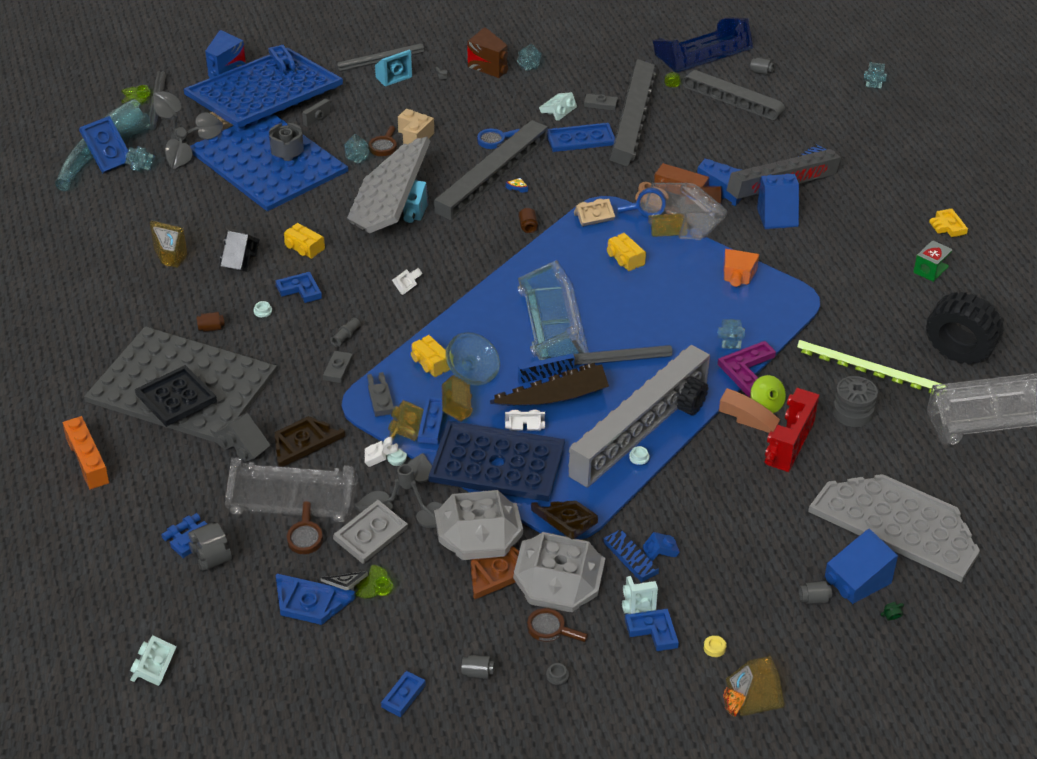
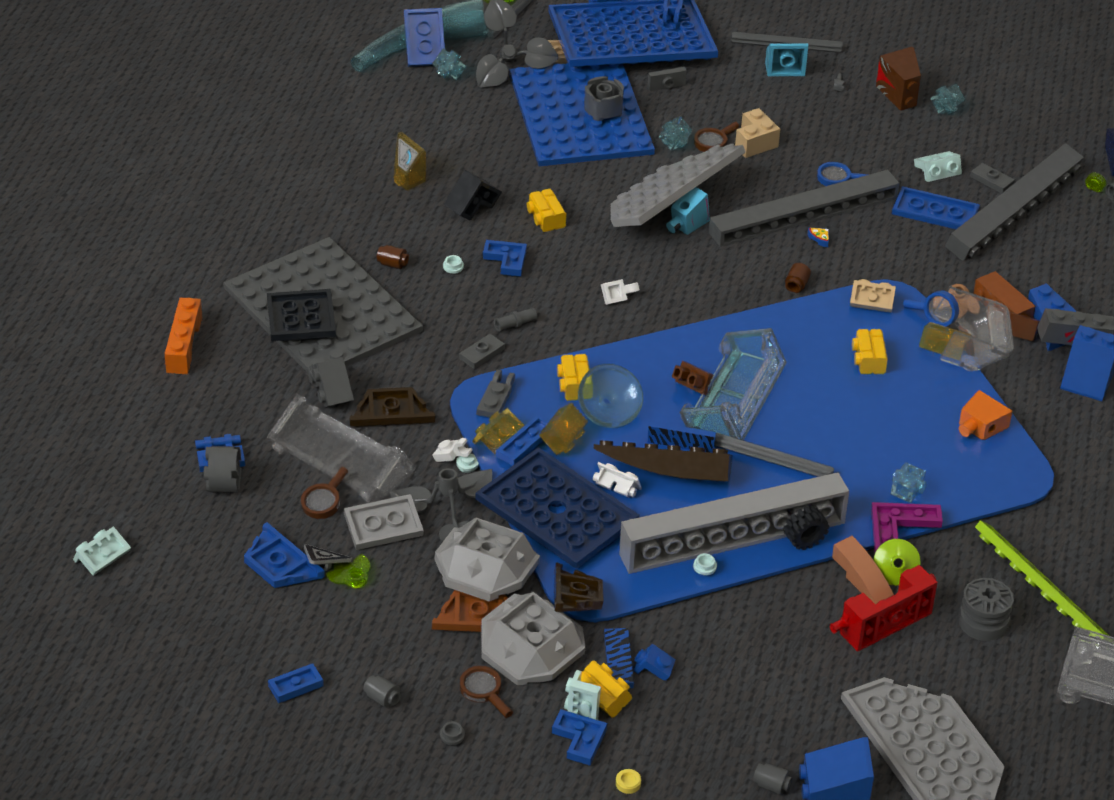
camera: 30 degrees right, 0 degrees up
(520, 320) = (692, 377): none -> reddish brown hips
(642, 575) = (613, 692): none -> yellow brick

